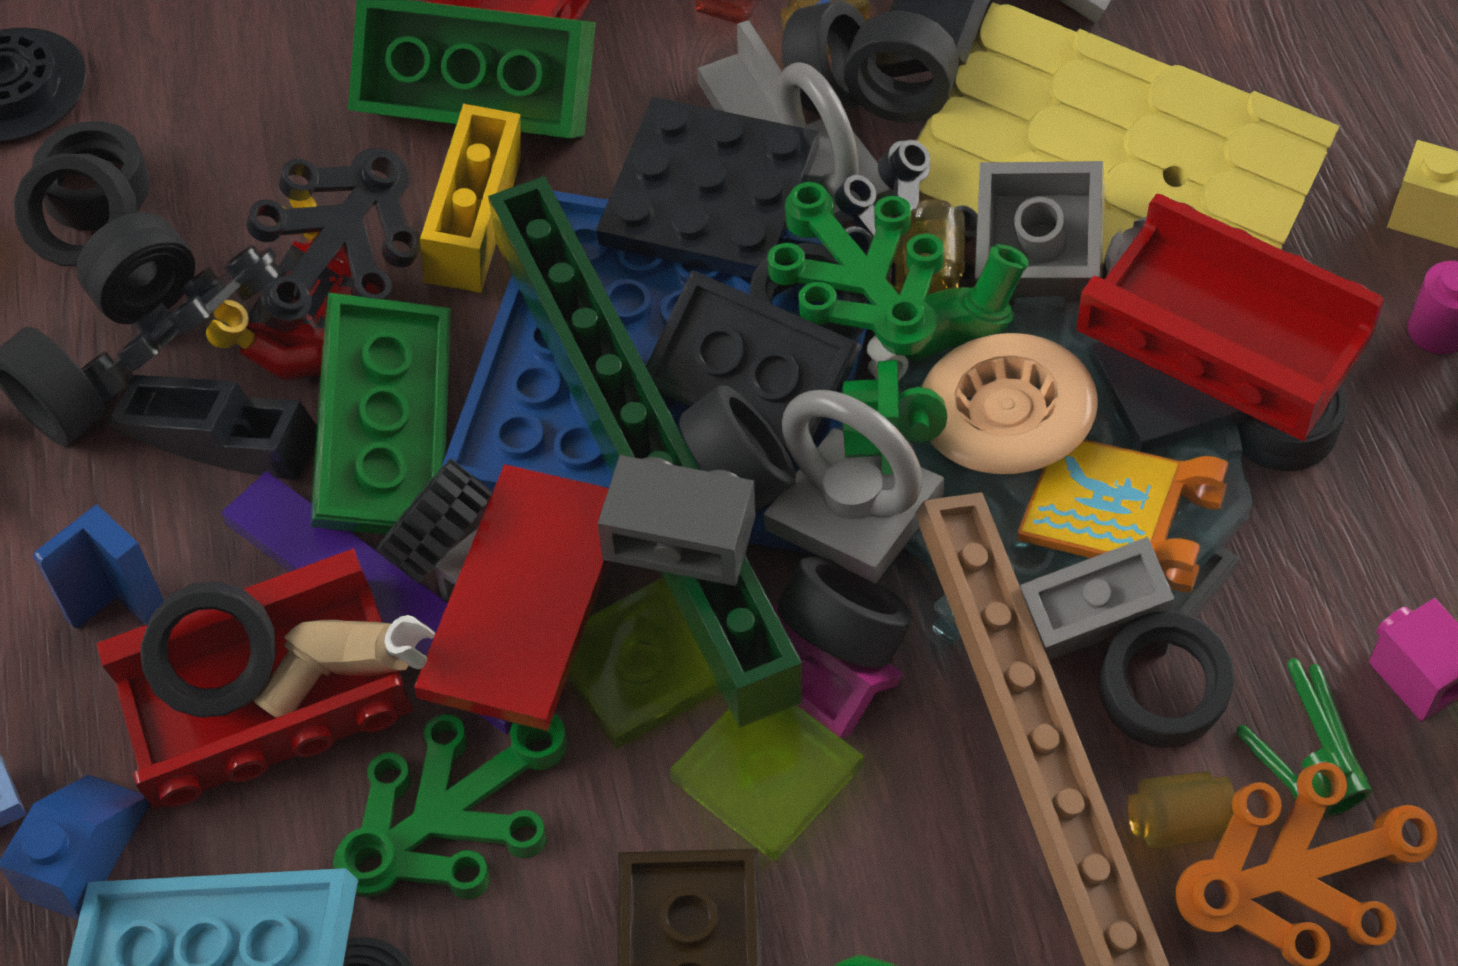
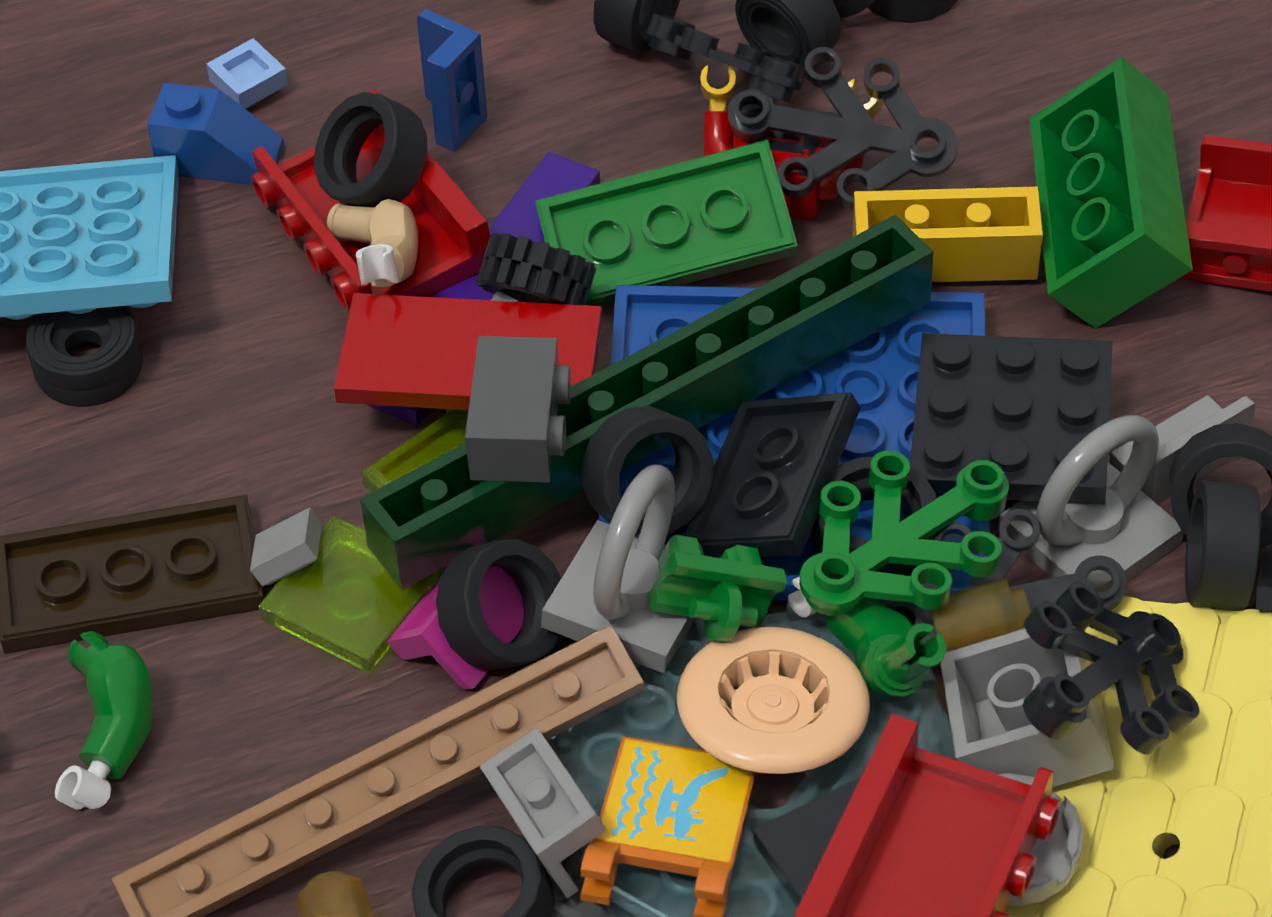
camera: 80 degrees right, 5 degrees down
(217, 424) = (641, 114): black slope -> none
(445, 811) = (226, 330): green plant -> none
(708, 813) = (286, 547): none -> light grey tile
(1065, 141) = (1144, 646): none -> black plant

